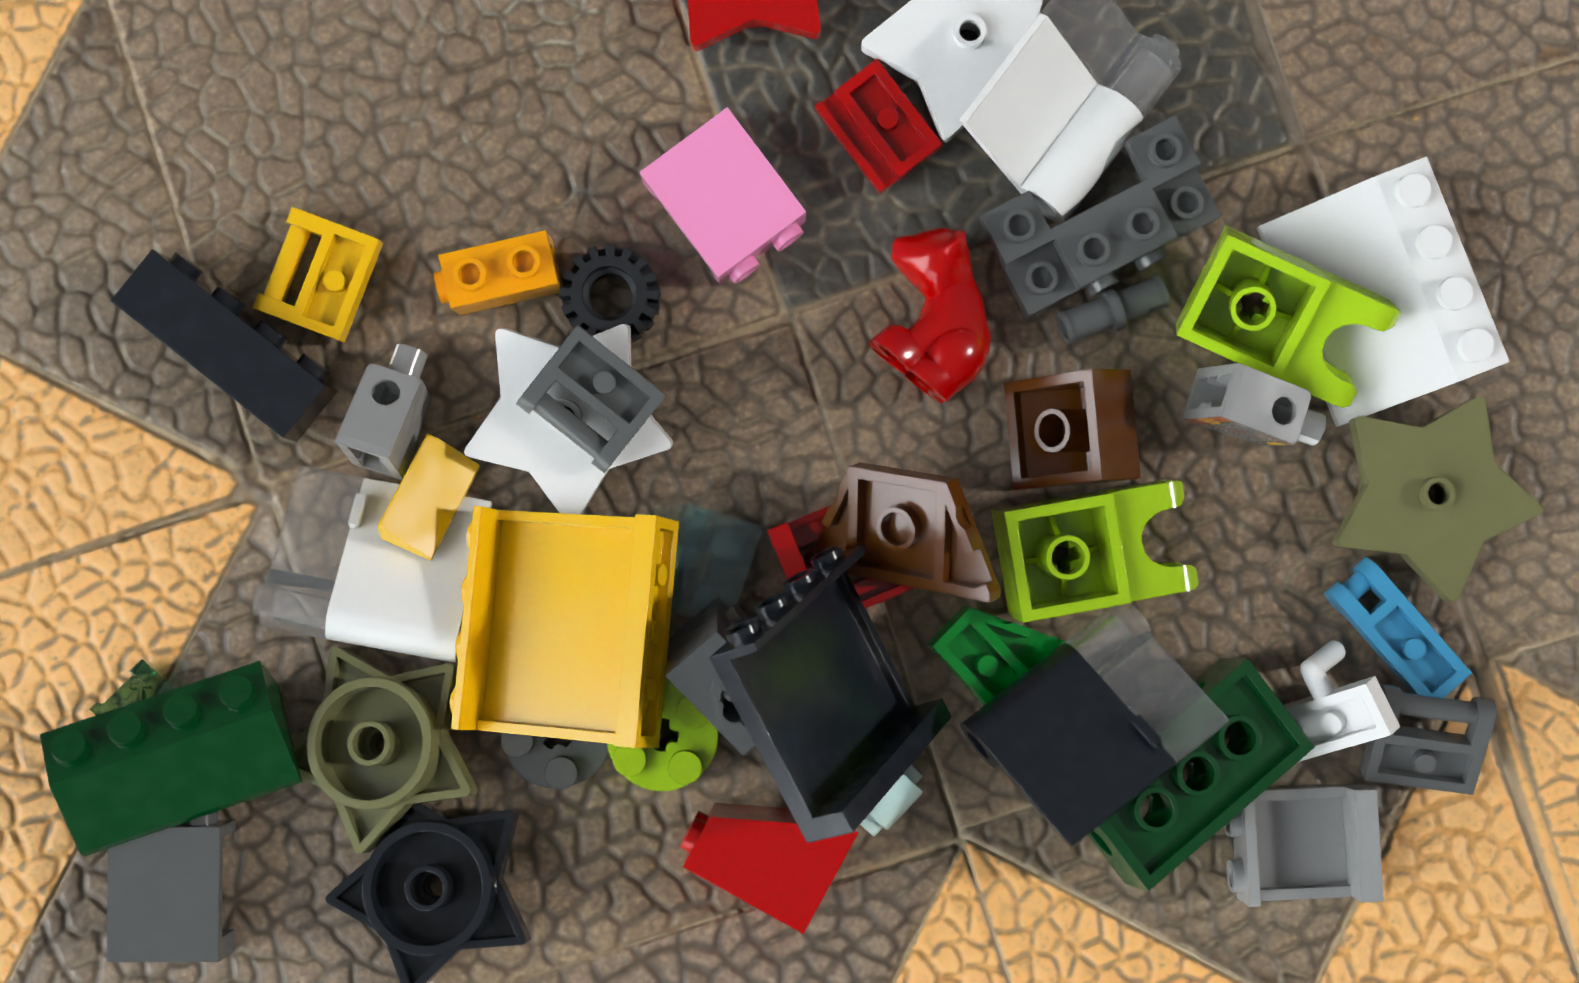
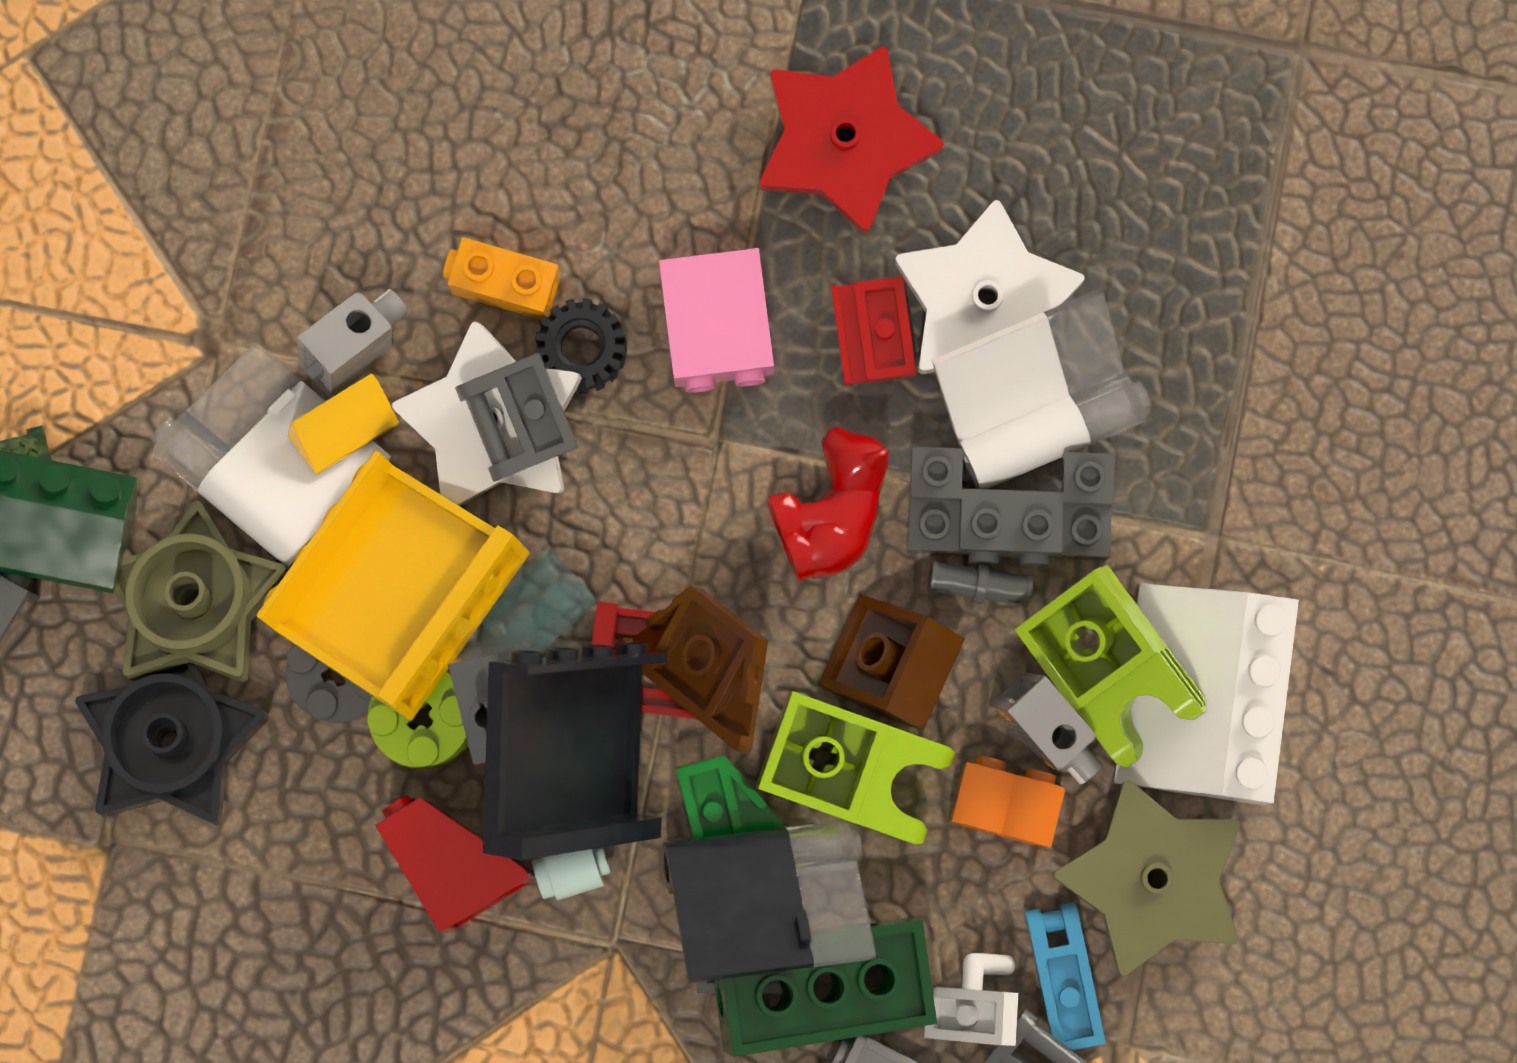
camera: 30 degrees right, 5 degrees down
(225, 345) = (253, 214): black brick -> none
(332, 282) = (368, 210): yellow plate -> none
(1254, 502) = (1007, 803): none -> orange brick

